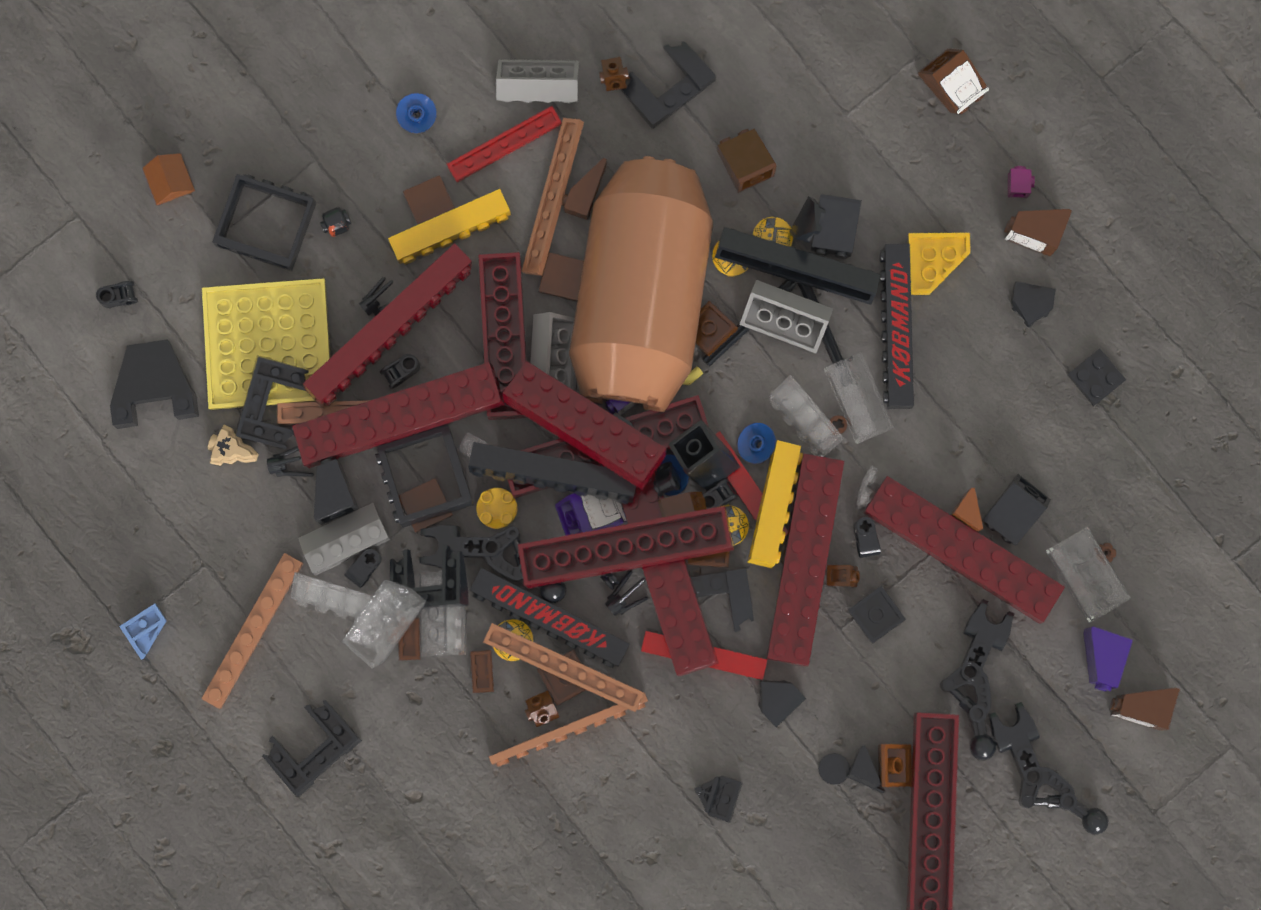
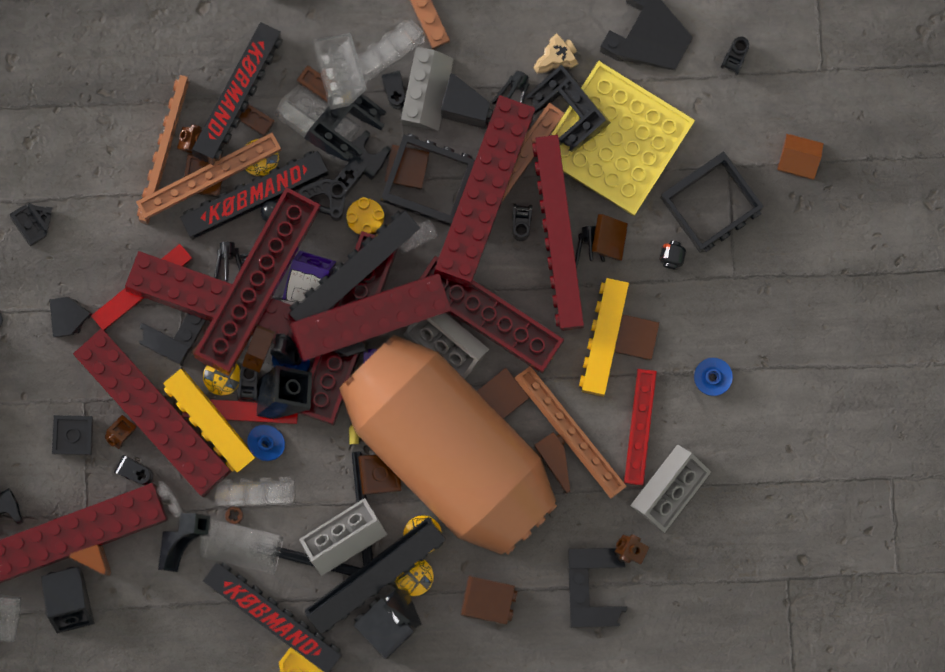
camera: 130 degrees right, 0 degrees up
(359, 283) = (609, 237): none -> reddish brown tile
(471, 699) = (237, 93): none -> black brick
(899, 455) = (175, 543): none -> black arch

